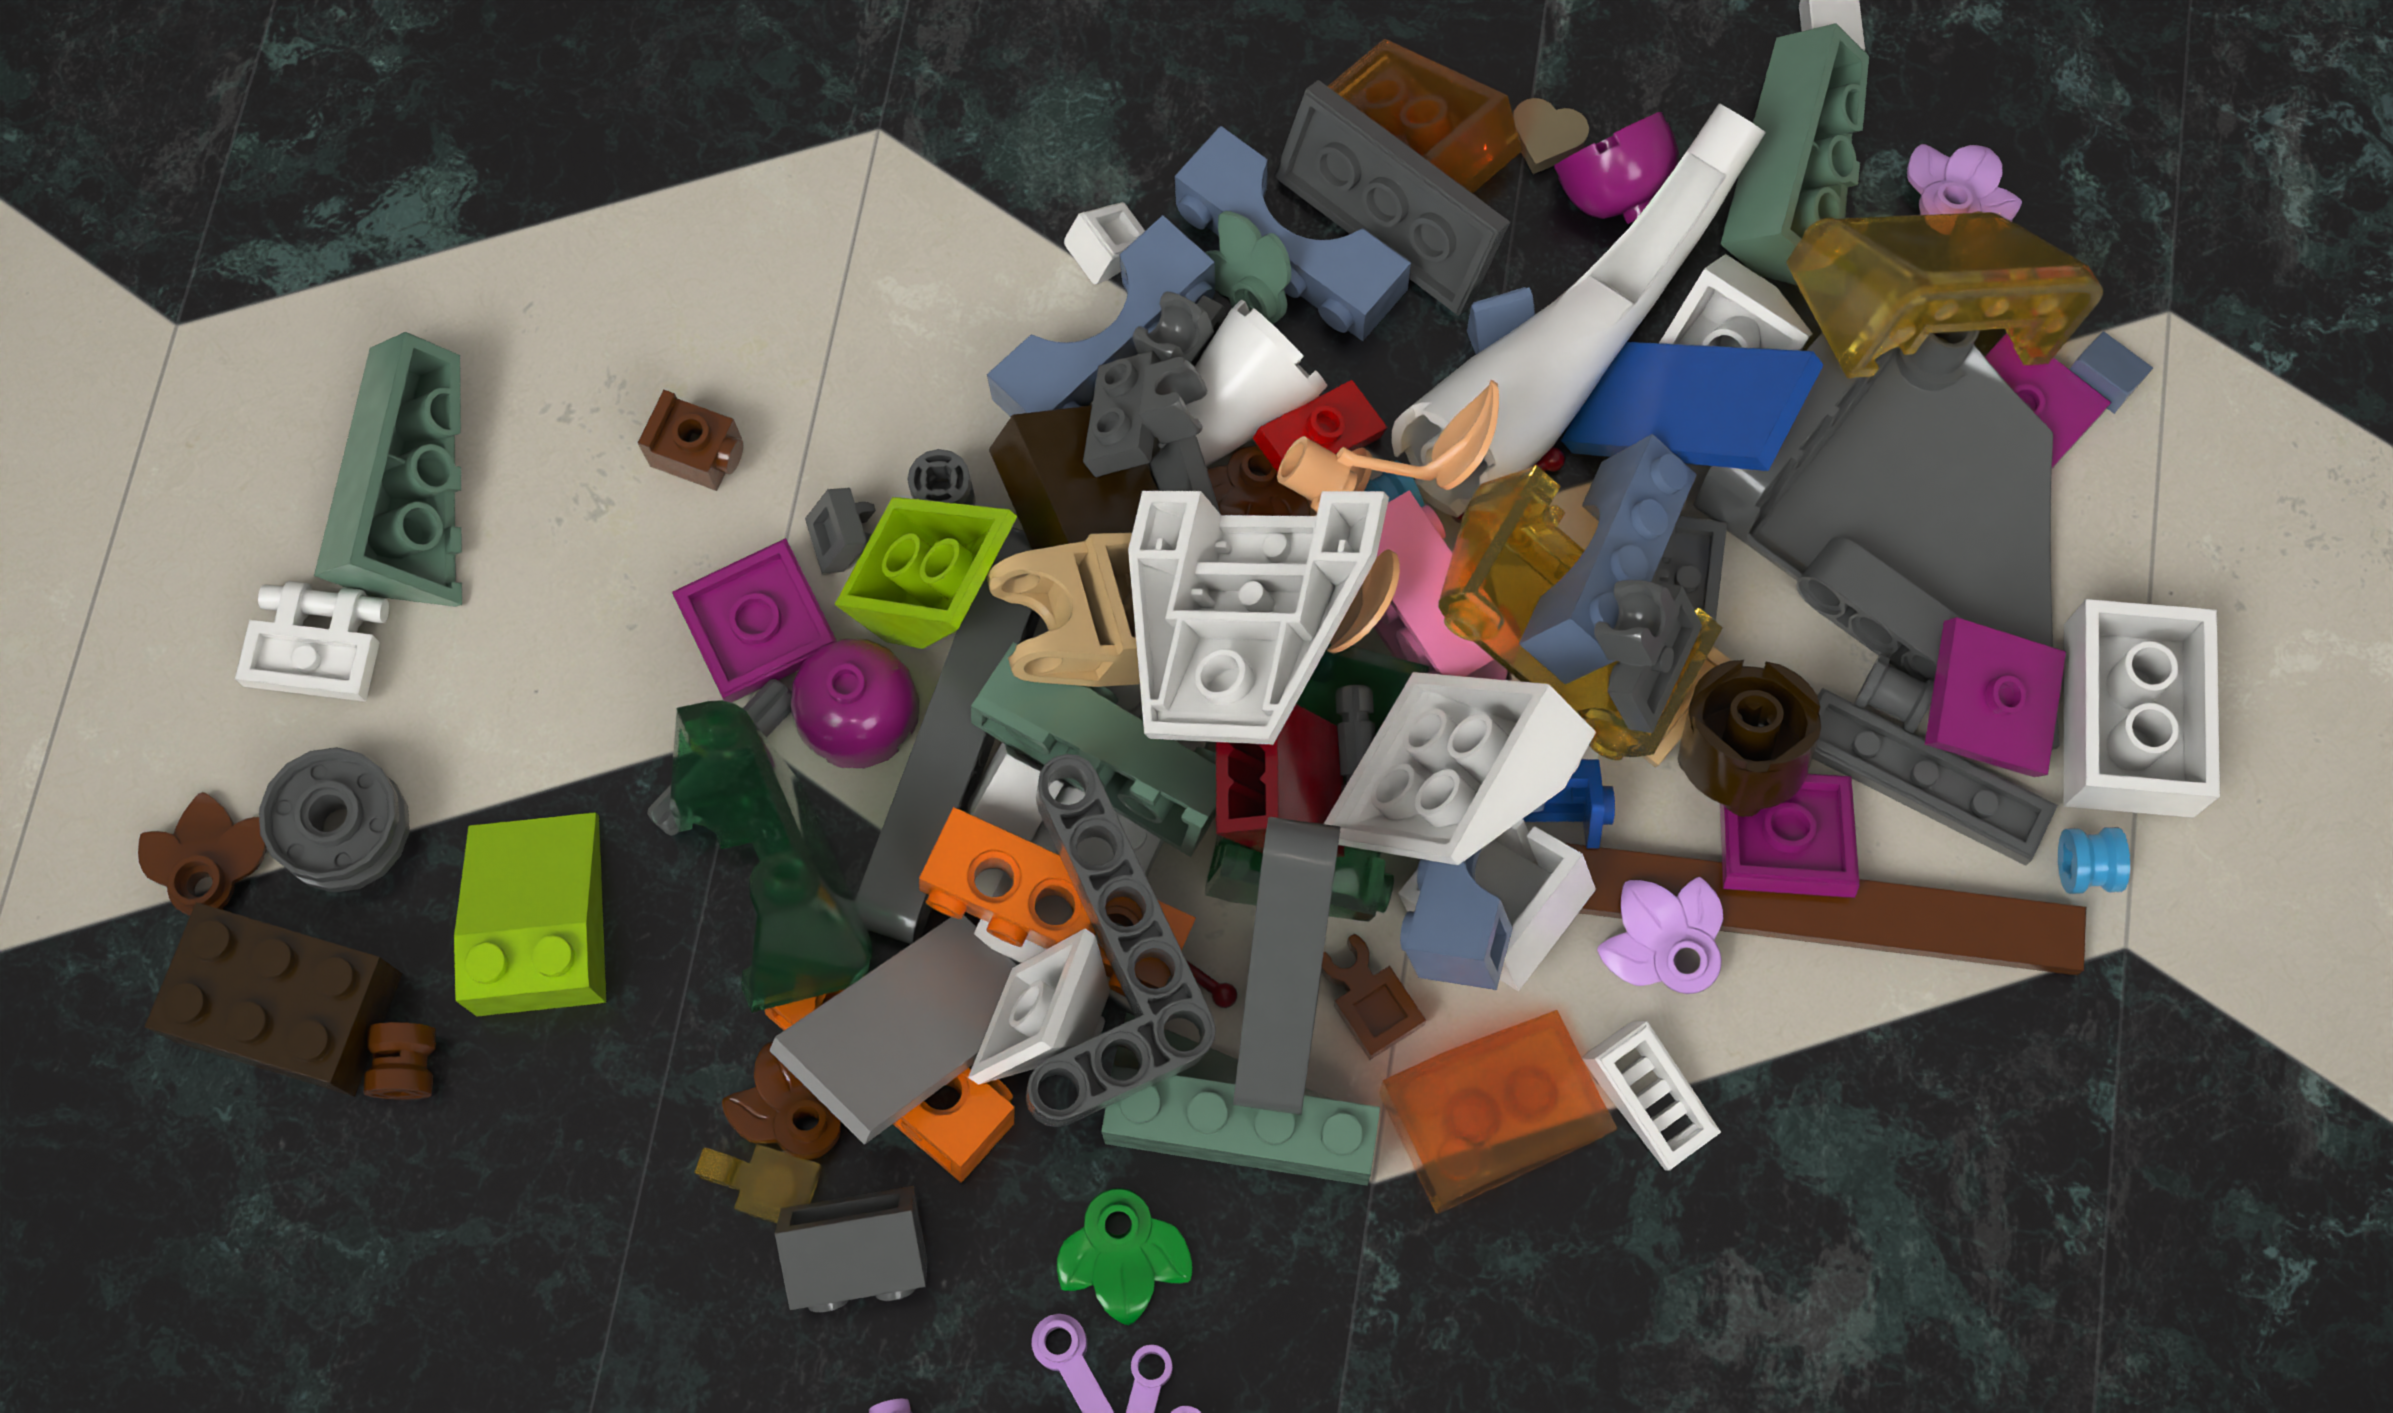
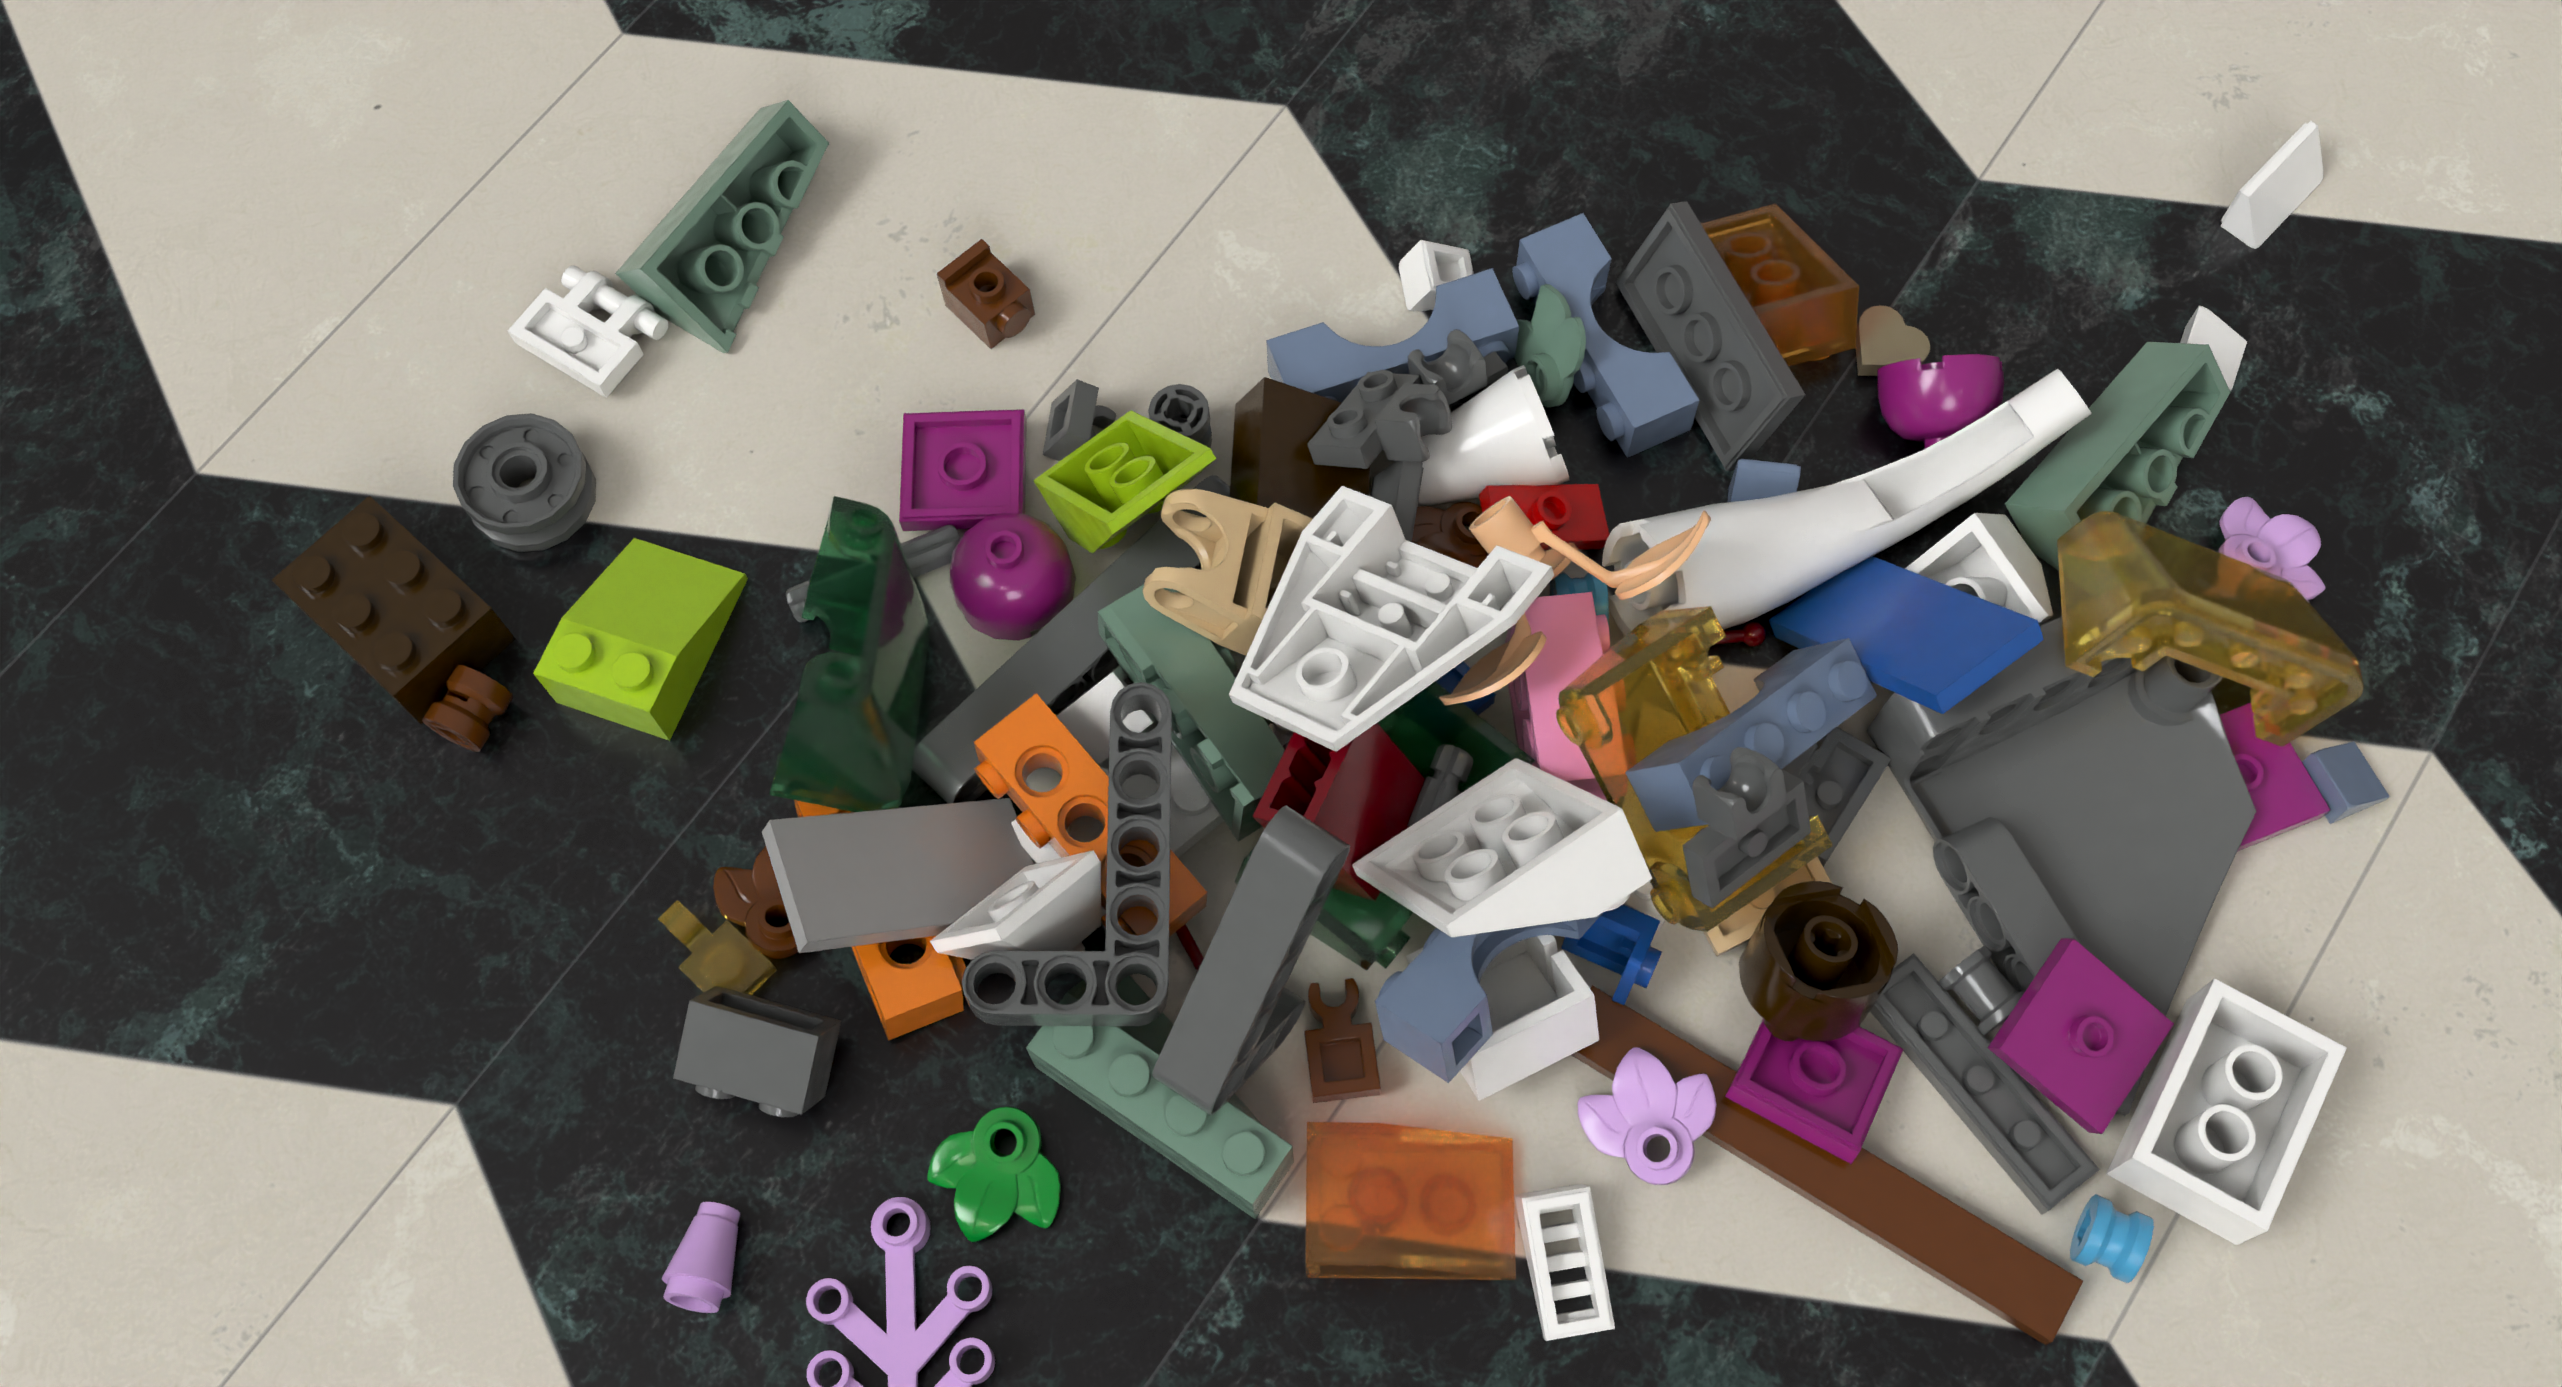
camera: 25 degrees right, 5 degrees down
(202, 847) = (412, 460): reddish brown plate -> none

